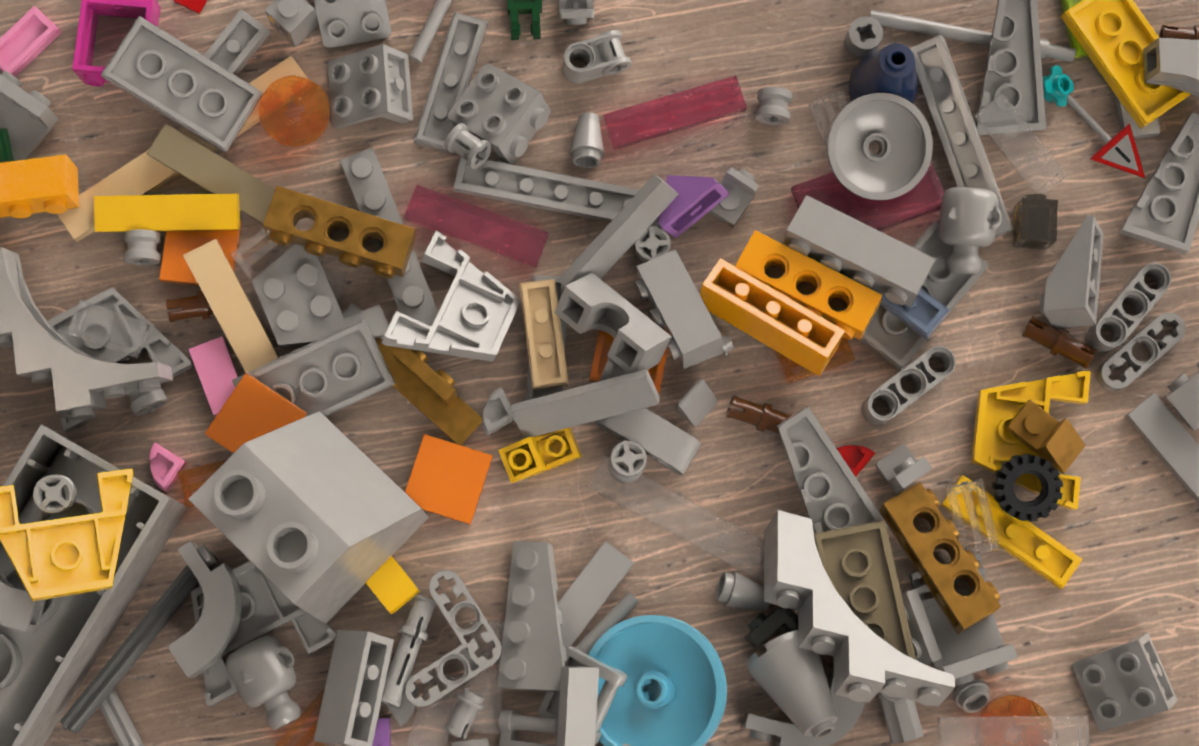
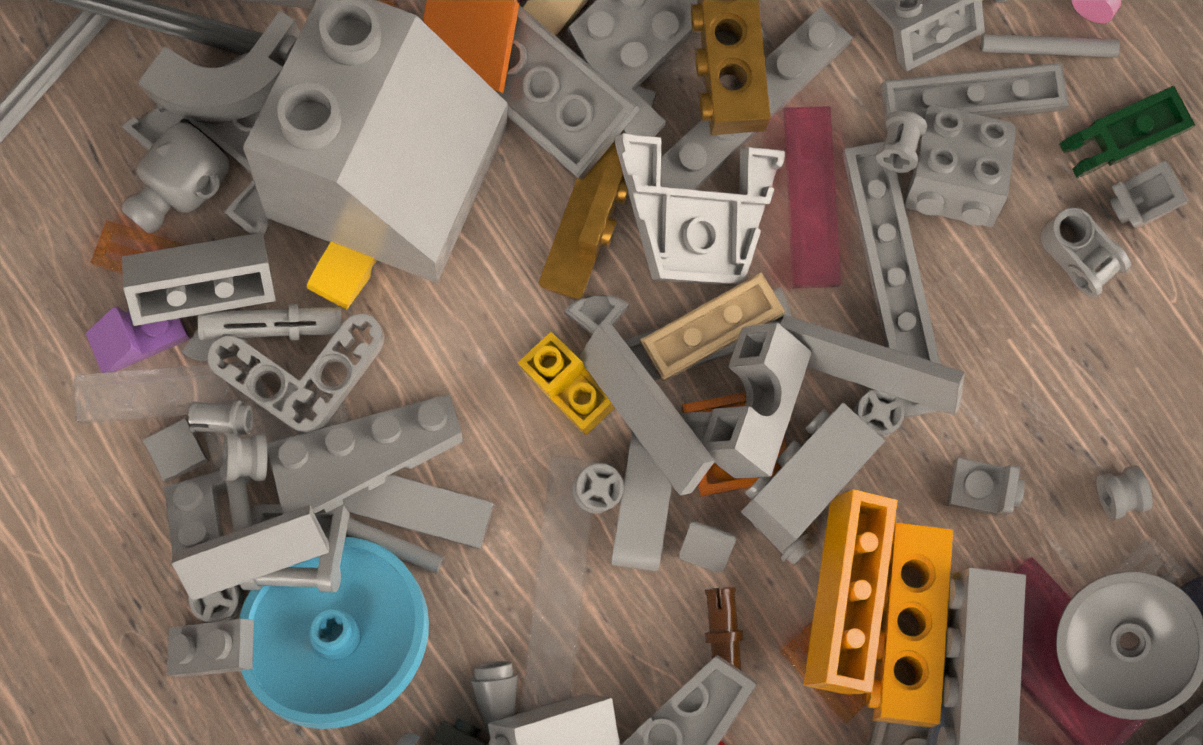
camera: 75 degrees right, 0 degrees up
(448, 478) = (493, 288): orange tile -> none
(502, 705) = (244, 457): none -> light grey wheel
(587, 142) = (971, 284): light grey cone -> none
(674, 112) = (1060, 376): clear pink tile -> none
(694, 200) = (956, 439): medium lavender slope -> none

